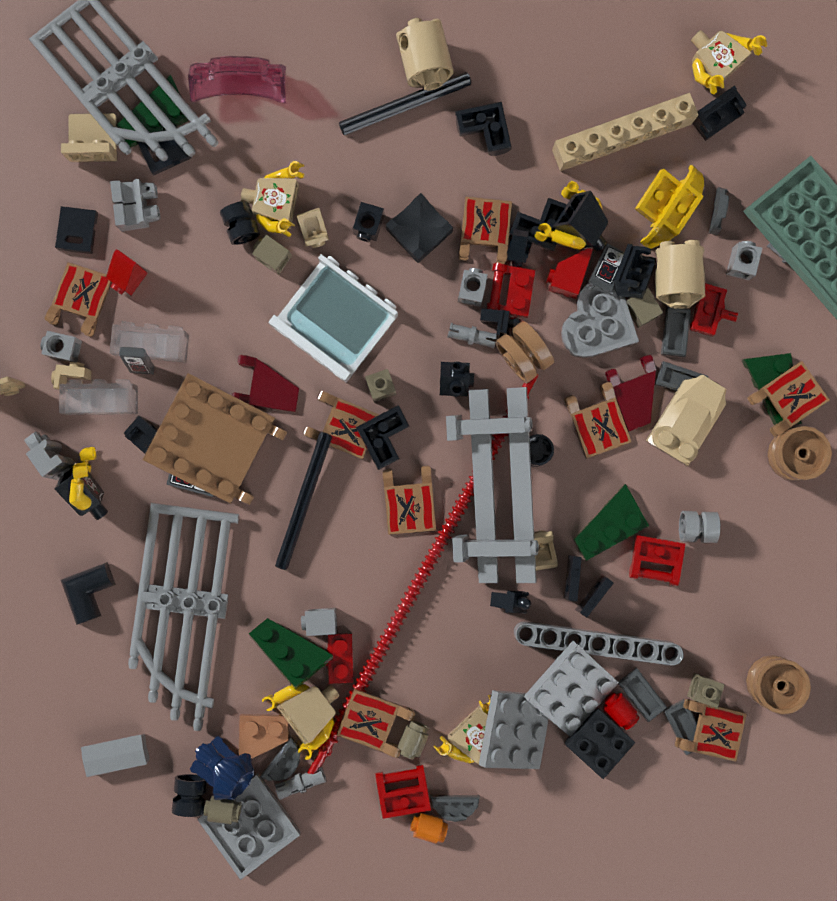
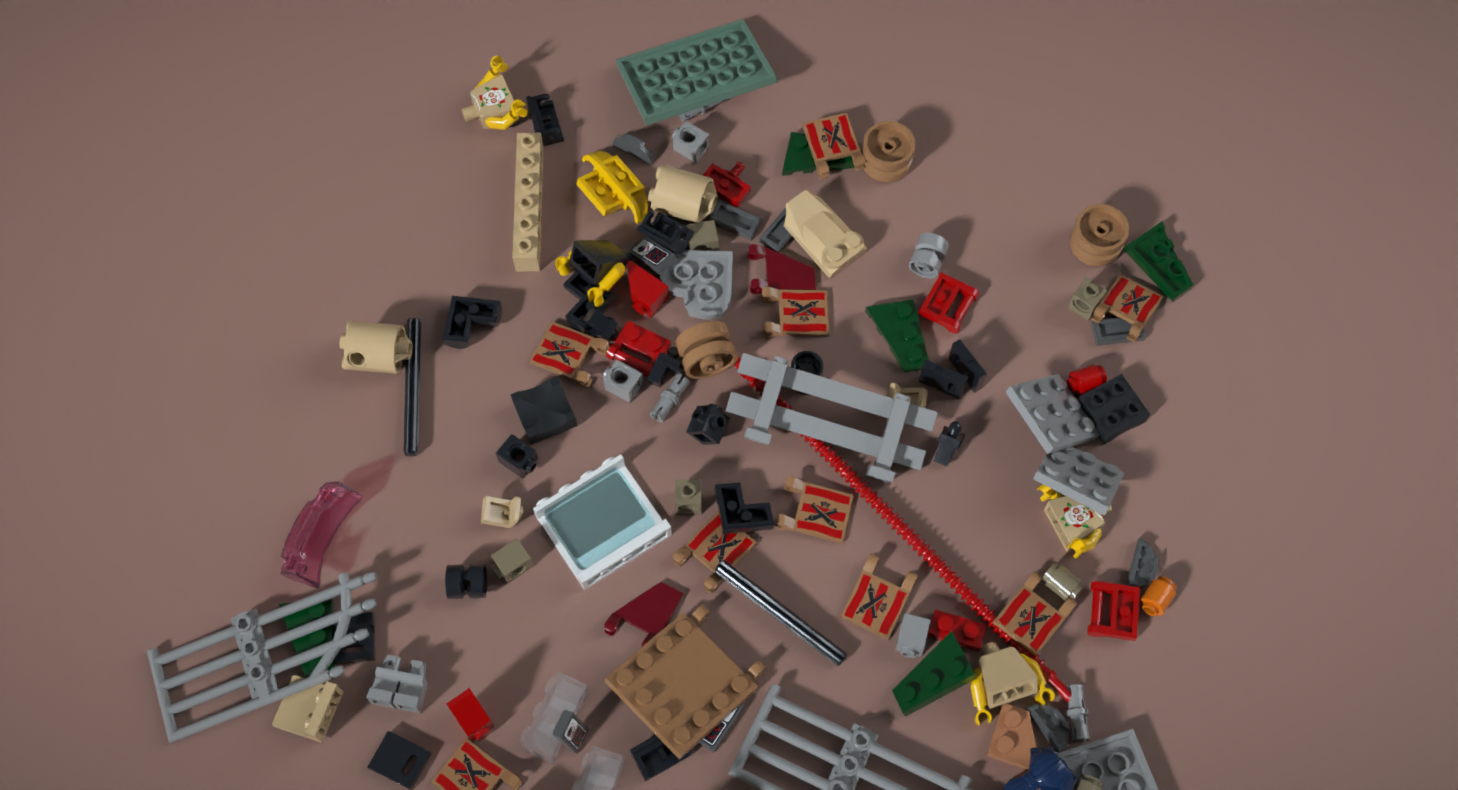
camera: 70 degrees left, 20 degrees down
(275, 198) = (457, 538): torso -> none
(343, 580) = (876, 602): none -> flag
(608, 649) = (1015, 368): light grey beam -> none
(642, 695) = (1076, 357): dark grey tile -> none
(771, 749) = (1157, 258): none -> dark green wing

